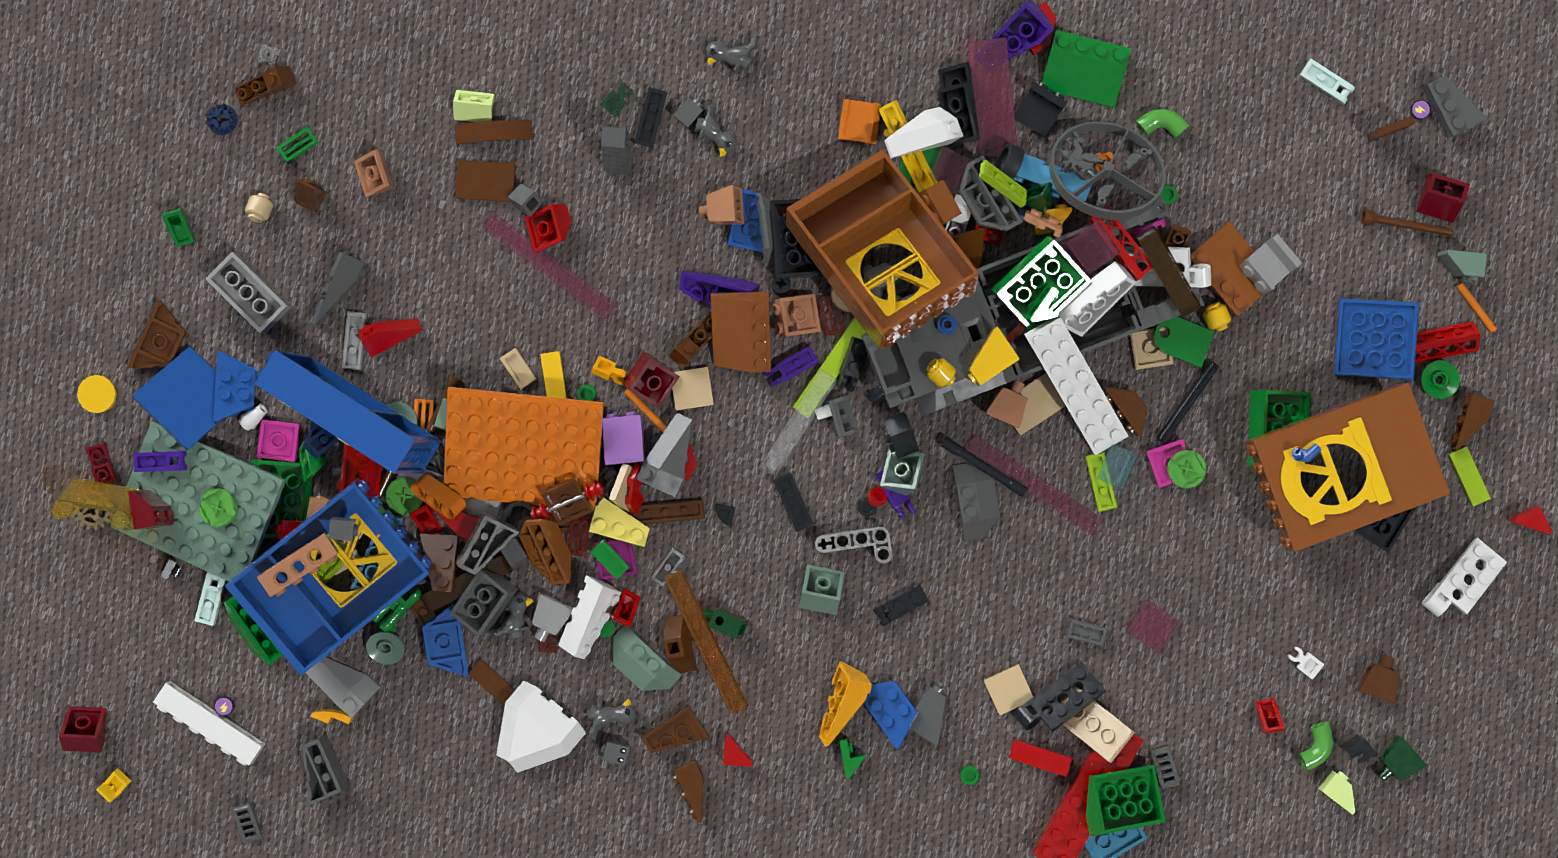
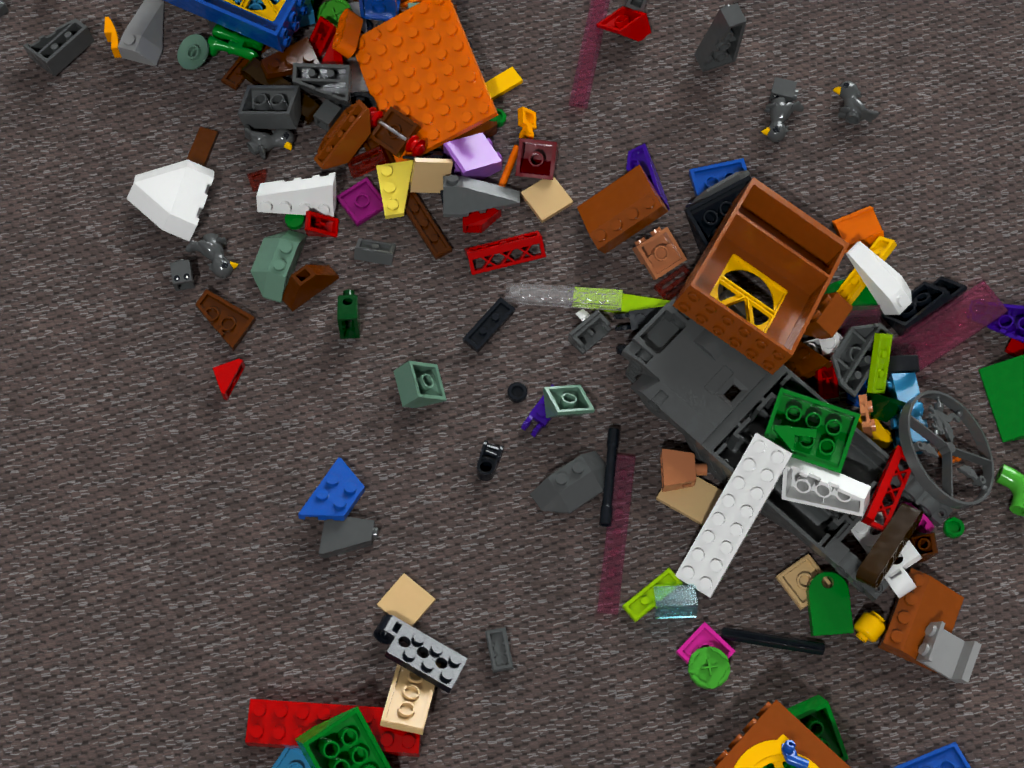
camera: 60 degrees right, 20 degrees down
(445, 643) = (218, 96): blue wing -> none
(518, 369) = (490, 56): tan tile -> none
(550, 616) = (282, 166): light grey torso -> none
(610, 559) = (360, 194): green panel -> none
(615, 101) = (758, 34): clear green plate -> none
(634, 498) = (424, 186): red tile -> none
(650, 117) = (761, 65): black plate -> none
(691, 780) = (180, 353): reddish brown slope -> none
(693, 342) = (584, 178): reddish brown slope -> none
(706, 641) = (322, 305): clear orange tile -> none
(724, 206) = (721, 151): nougat torso -> none
(724, 453) = (504, 245): none -> red fence
(725, 513) = (448, 274): black tile -> none
(780, 288) = (678, 233): black wheel -> none
(793, 365) = (612, 270): dark purple hinge -> none
(848, 696) = (335, 450): light orange wedge -> none
(850, 762) = (265, 483): green slope -> none
(852, 543) = (477, 392): light grey beam -> none
(877, 497) = (531, 394): red tile -> none
(900, 435) = (601, 381): black brick -> none
(901, 604) = (440, 464): black plate -> none
(918, 561) = (489, 457): none -> black piece
(940, 324) = (726, 366): blue plate -> none
(941, 372) = (680, 373): yellow head -> none
(969, 775) = (303, 604): green tile -> none
(992, 358) = (717, 413): yellow slope -> none
(1015, 332) = (751, 428): clear red tile -> none
(1040, 109) = (963, 375): black bracket -> none
(1040, 757) = (352, 663): red slope -> none
(1093, 247) = (872, 462): clear pink tile -> none
(1128, 407) = (737, 584): reddish brown slope -> none
(1152, 625) = (537, 713): clear pink tile -> none

